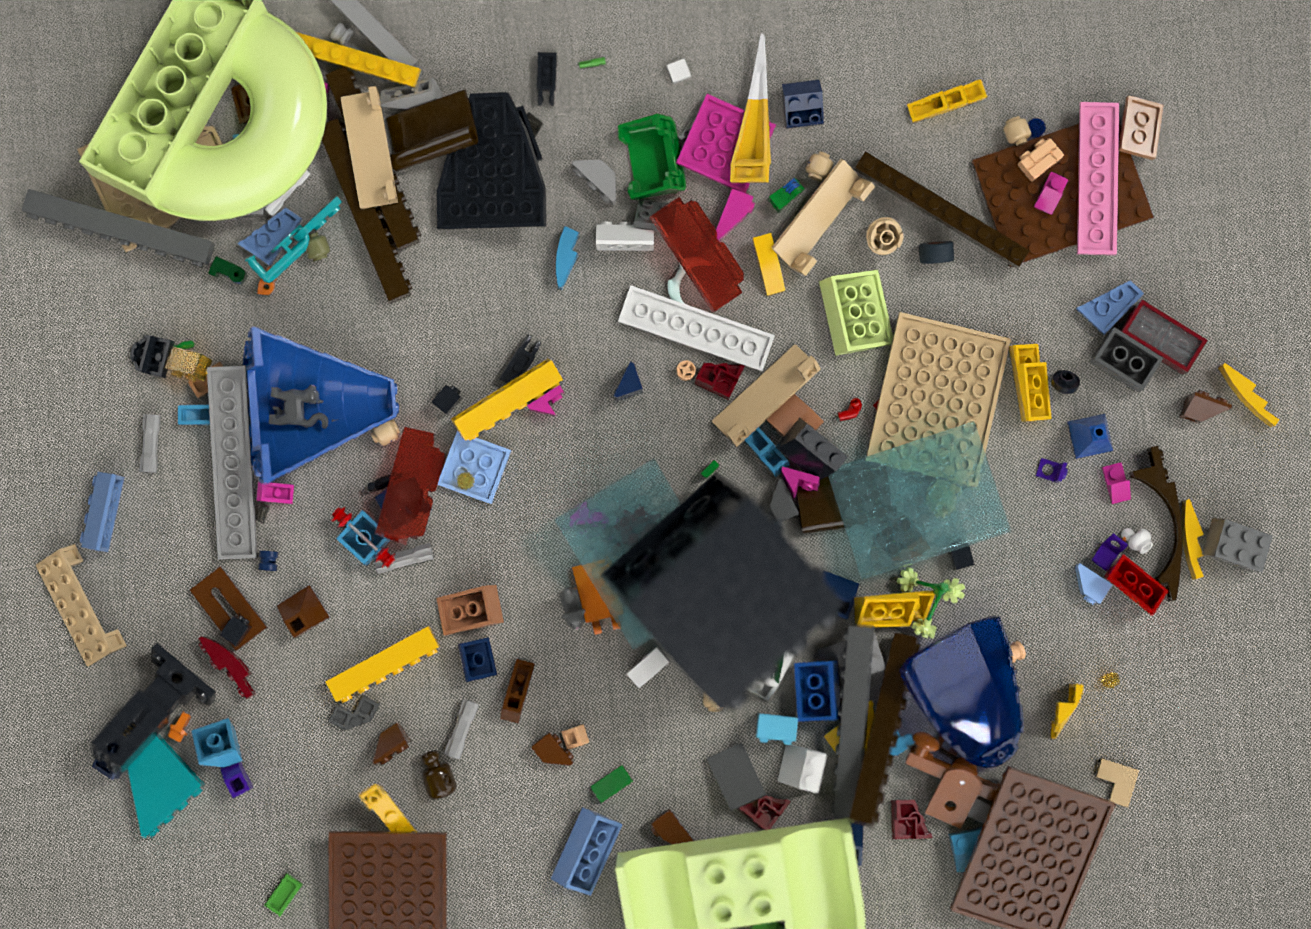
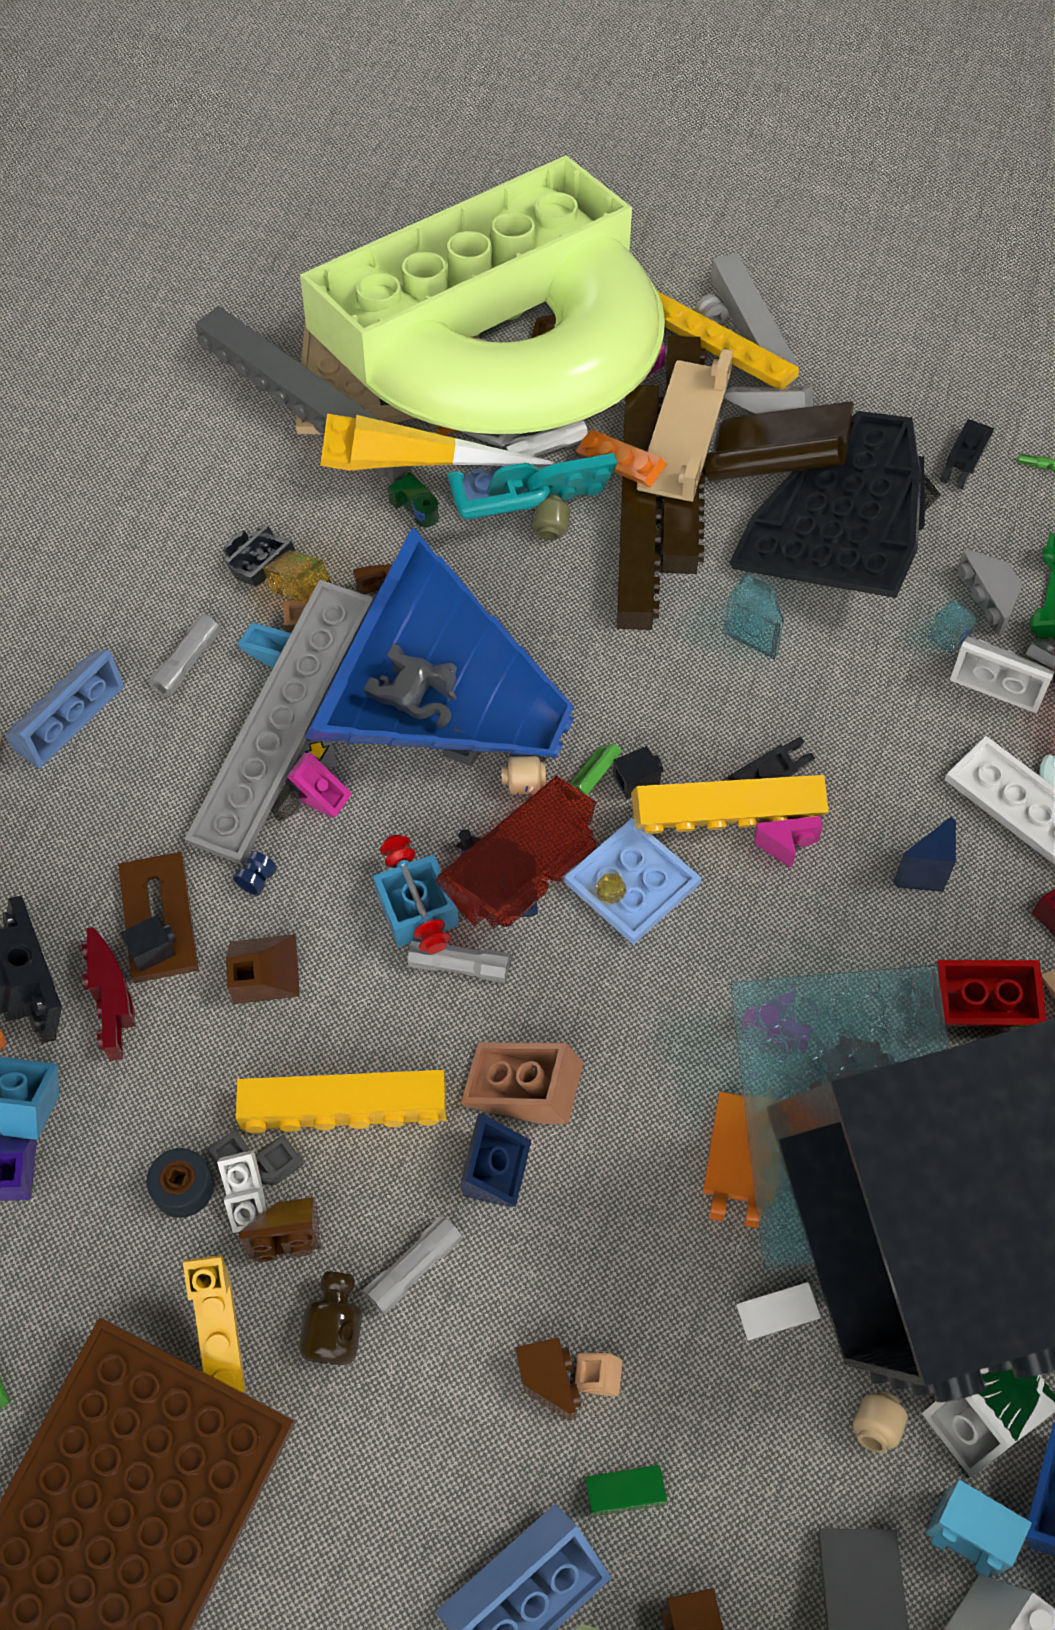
camera: 25 degrees right, 25 degrees down
(187, 254) = (379, 444): none -> yellow plate
(232, 339) = (370, 578): none -> reddish brown slope
(261, 287) = (461, 528): orange piece -> none
(331, 744) = (188, 1193): none -> black wheel
(340, 188) = (631, 461): none -> orange plate
(359, 734) = (243, 1189): none -> white slope
(422, 410) = (595, 768): none -> bright green tile
(468, 267) = (754, 616): none -> clear light blue slope
(517, 691) = (534, 1247): reddish brown slope -> none
(565, 256) = (904, 662): dark azure slope -> none
(572, 607) = (695, 1144): dark grey animal -> none
(585, 217) = (952, 626): none -> clear light blue brick
(687, 367) = (1027, 877): light nougat wheel -> none
(688, 452) = (991, 993): none -> red slope

